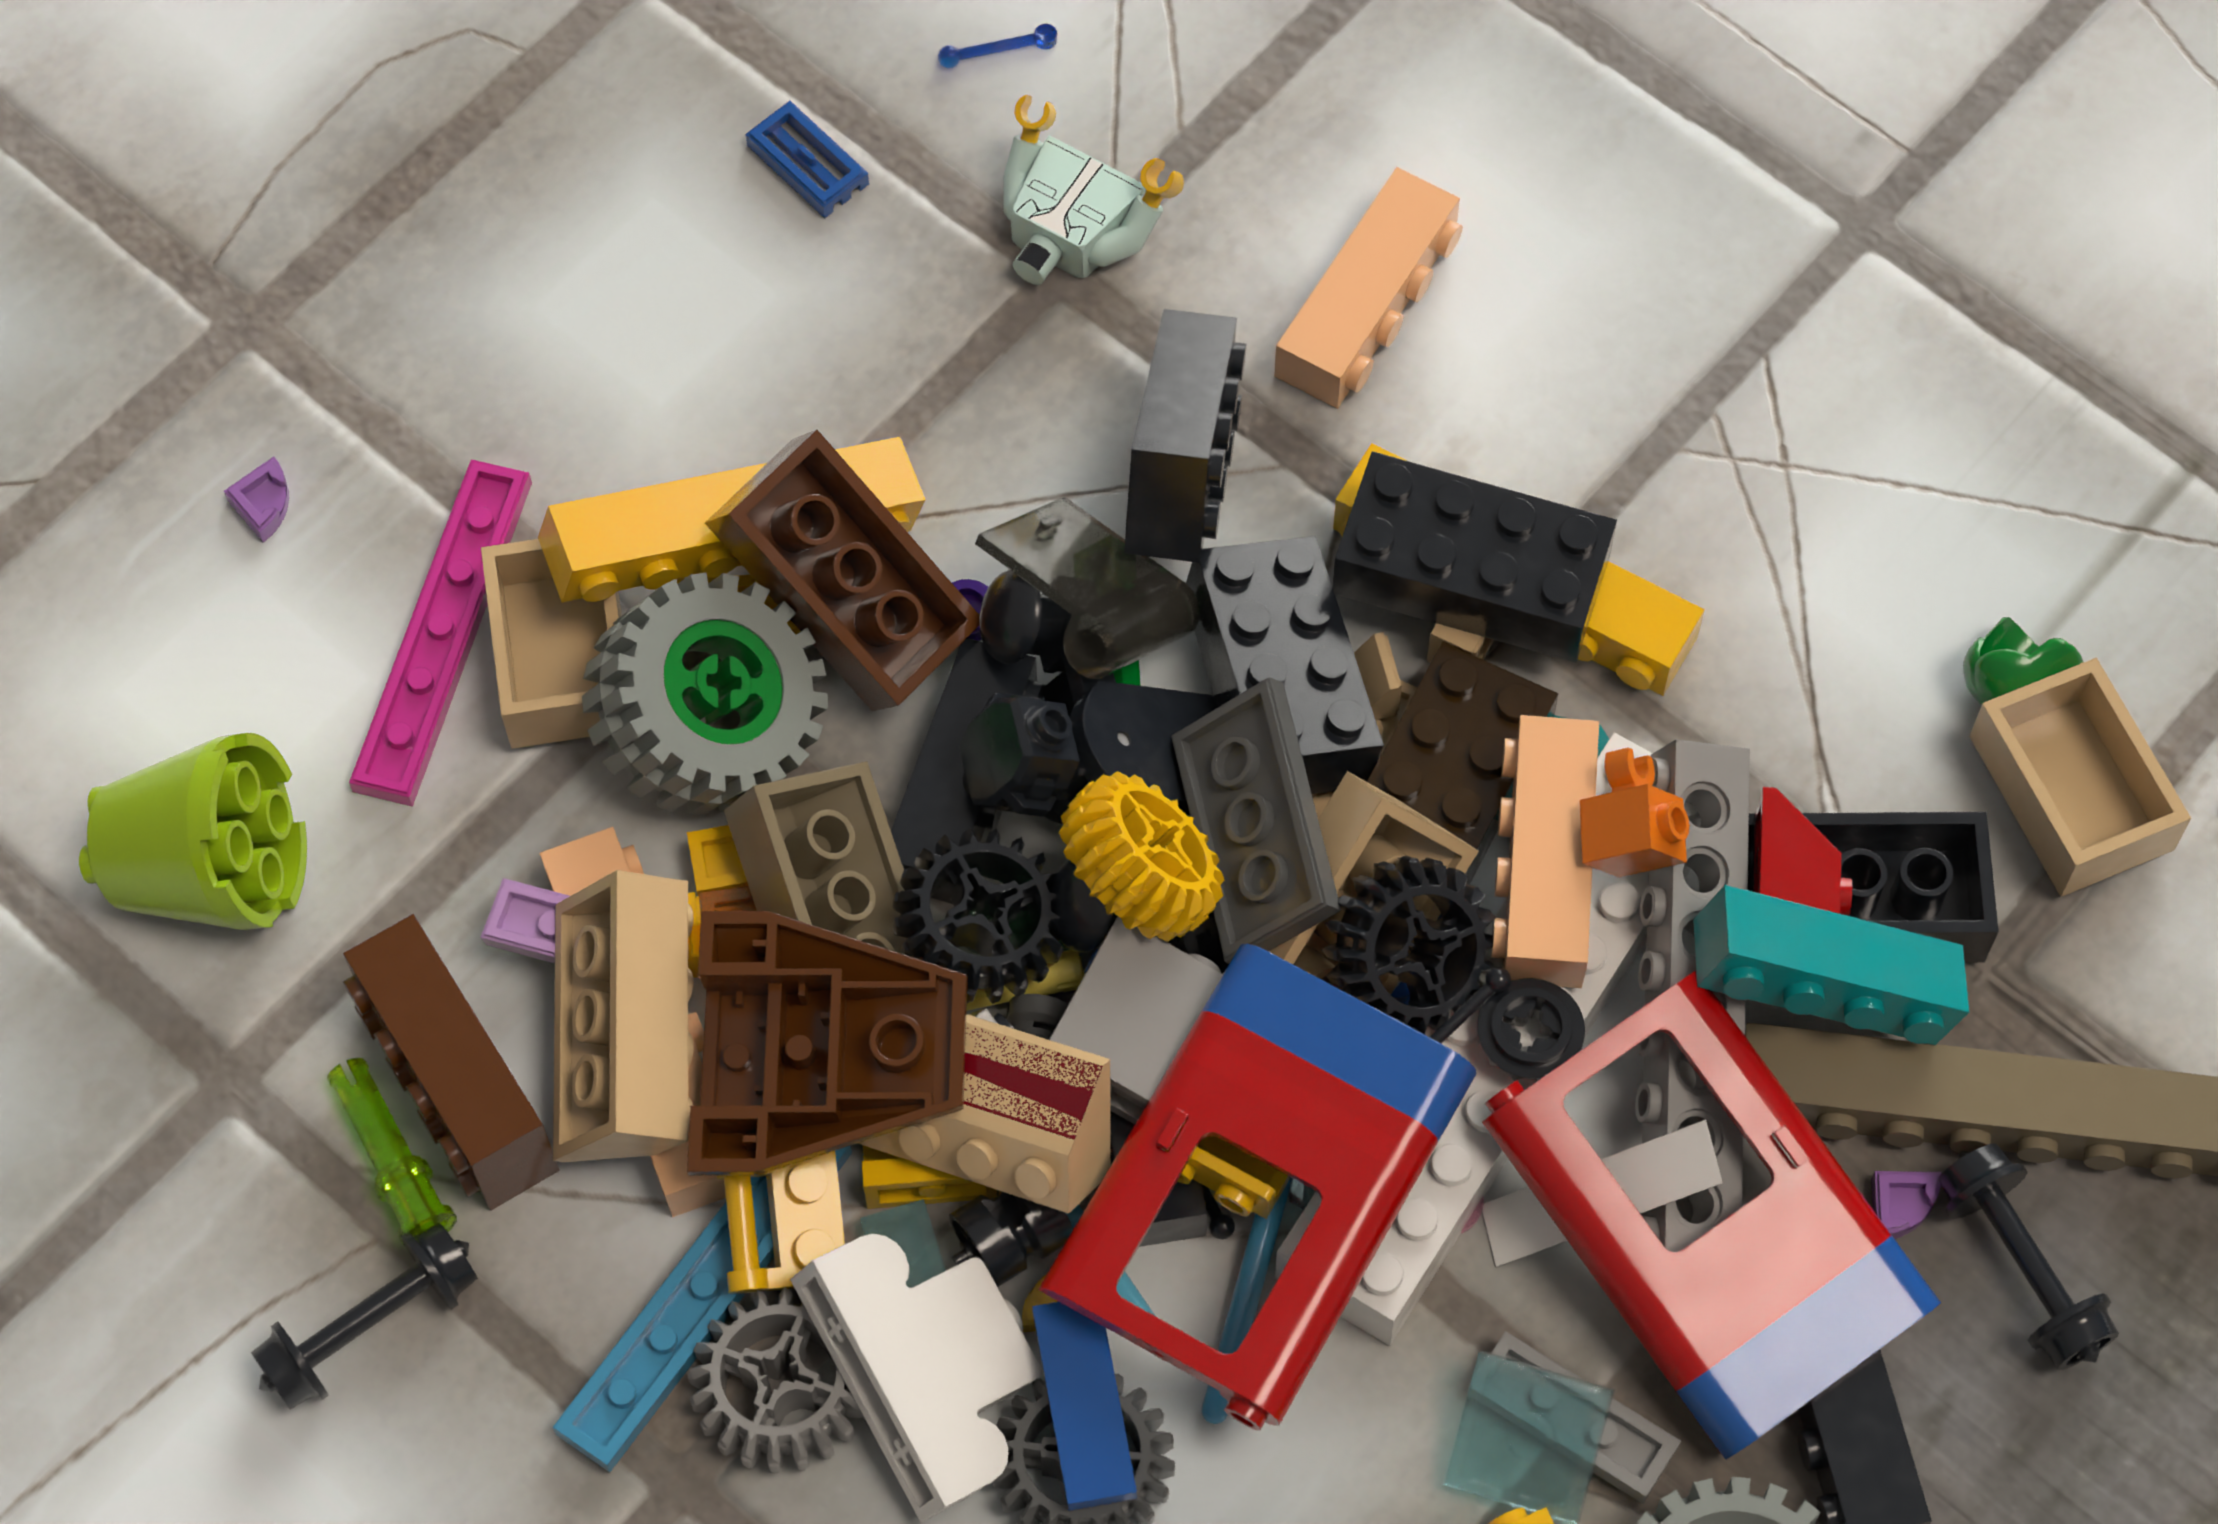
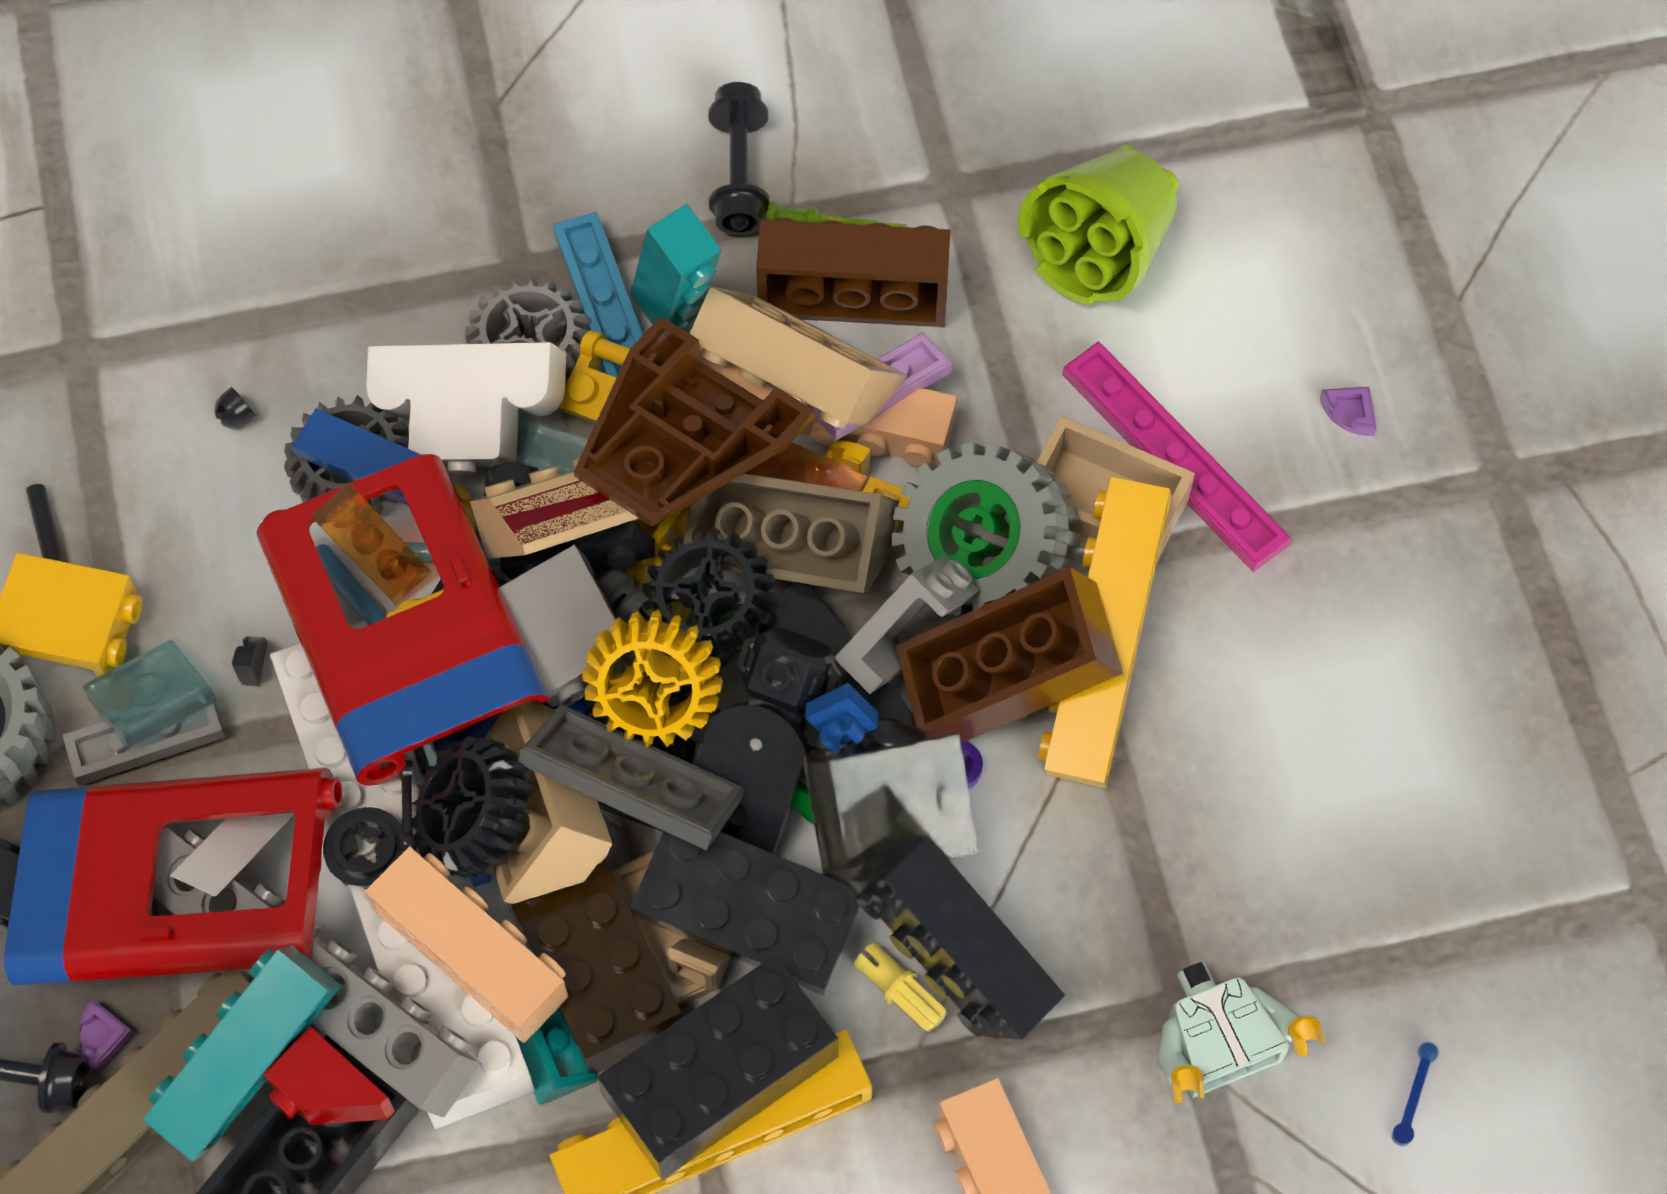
camera: 125 degrees right, 0 degrees up
(614, 1200) = (675, 268): none -> teal brick
(836, 189) = (1402, 915): blue tile -> none
(871, 690) = (872, 652): none -> light grey panel
(1041, 658) = (841, 717): none -> blue tile
(1190, 1303) = (371, 543): none -> clear orange plate
(1246, 495) = (901, 988): none -> light yellow axle
(1397, 1378) = (249, 660): none -> black tile
(1636, 823) = (426, 980): orange brick -> none

